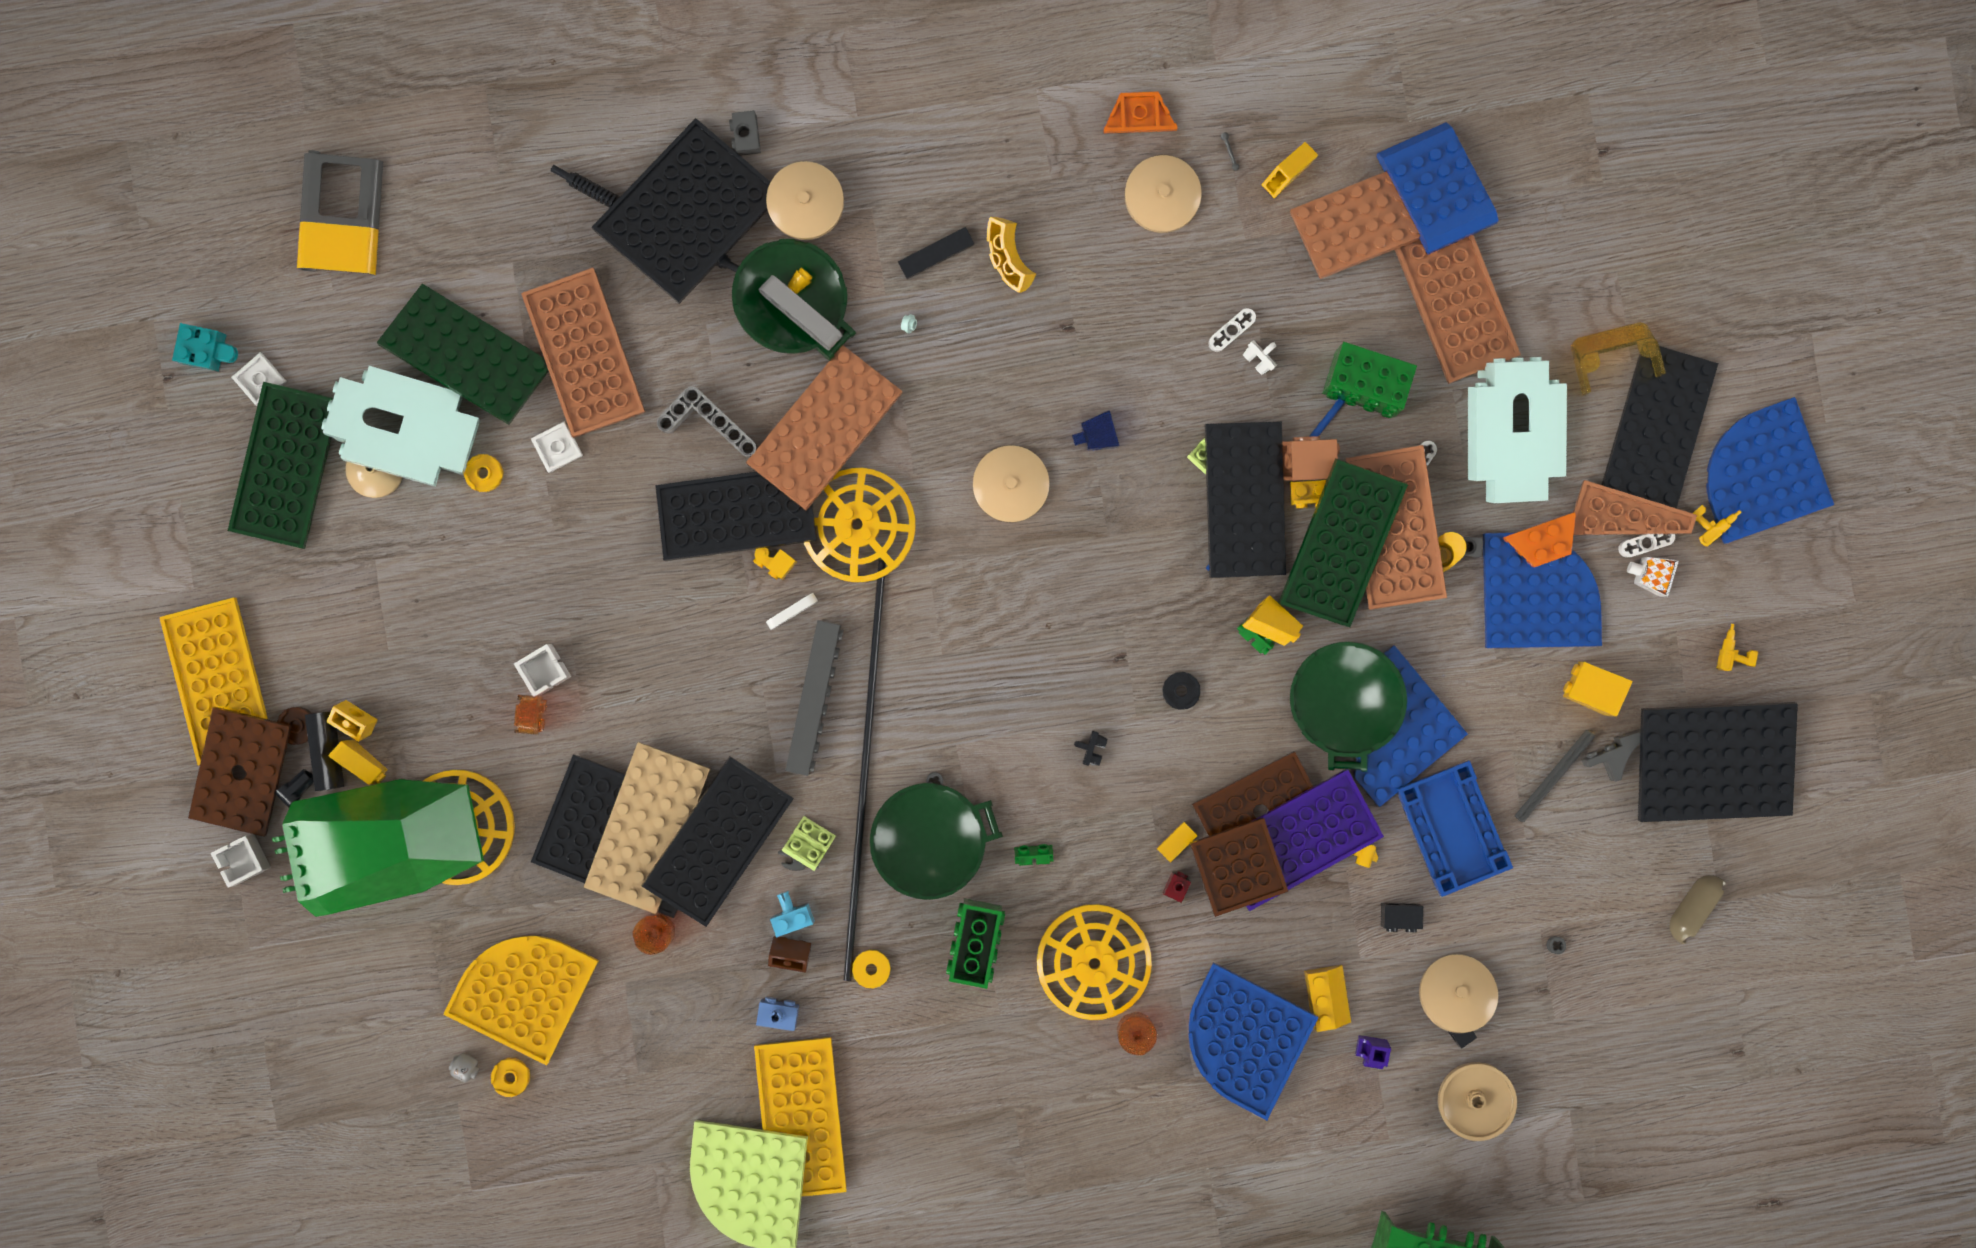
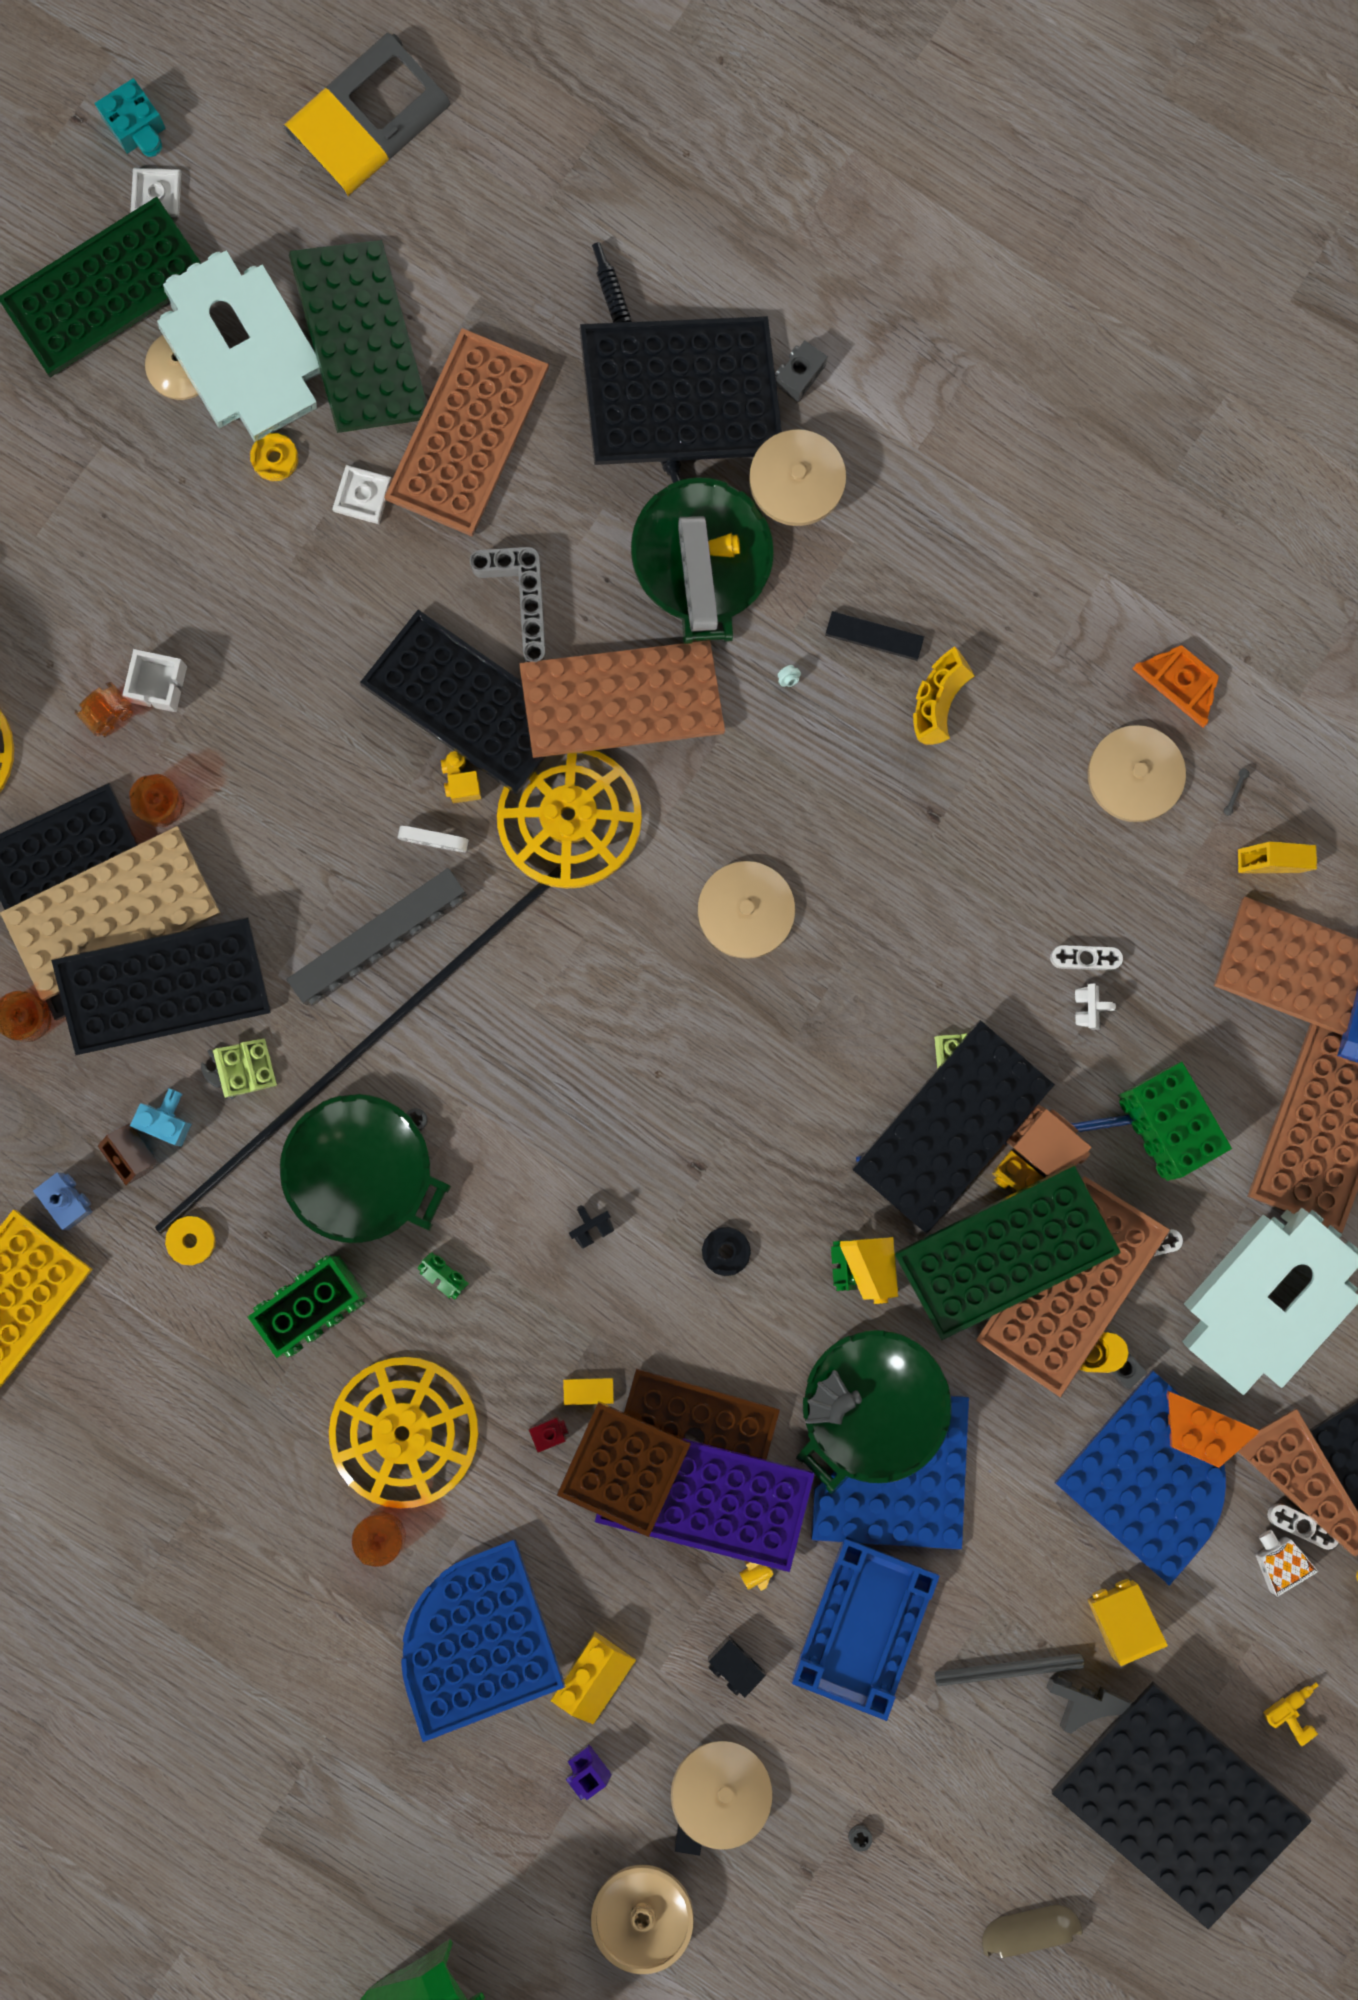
camera: 45 degrees right, 5 degrees down
(607, 748) = (156, 814): none -> clear orange brick
(1097, 433) = (870, 937): clear blue torso -> none
(1319, 719) = (831, 1401): none -> dark grey arm

